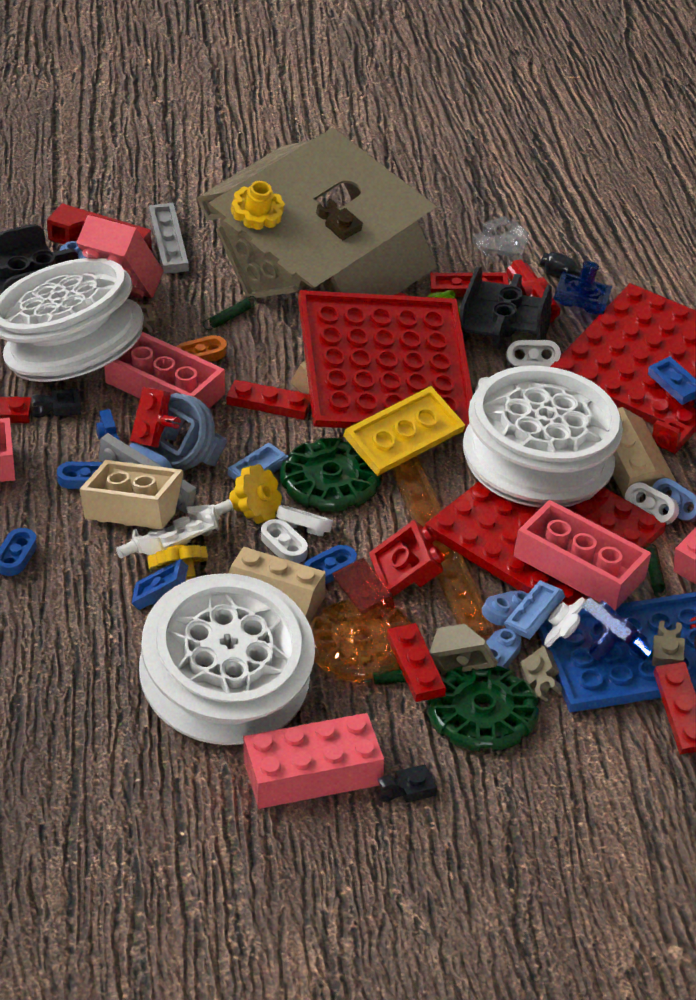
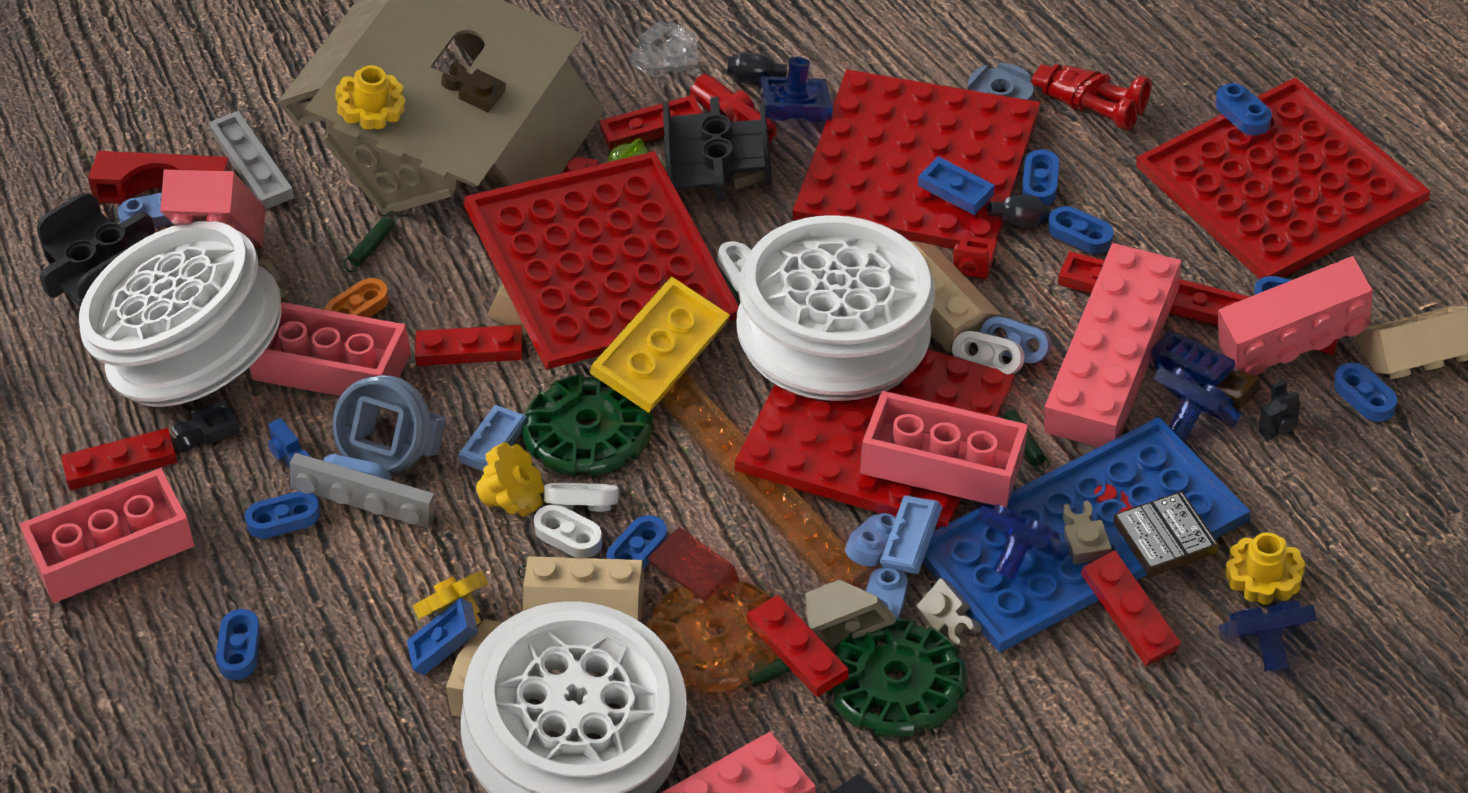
camera: 15 degrees left, 5 degrees up
(132, 494) = (357, 525): tan slope -> none
(152, 417) = (345, 417): red plate -> none
(201, 521) = (438, 553): white plate -> none
(407, 558) = (730, 511): red plate -> none
(532, 353) = (766, 195): white plate -> none
(564, 621) = (955, 540): white plate -> none

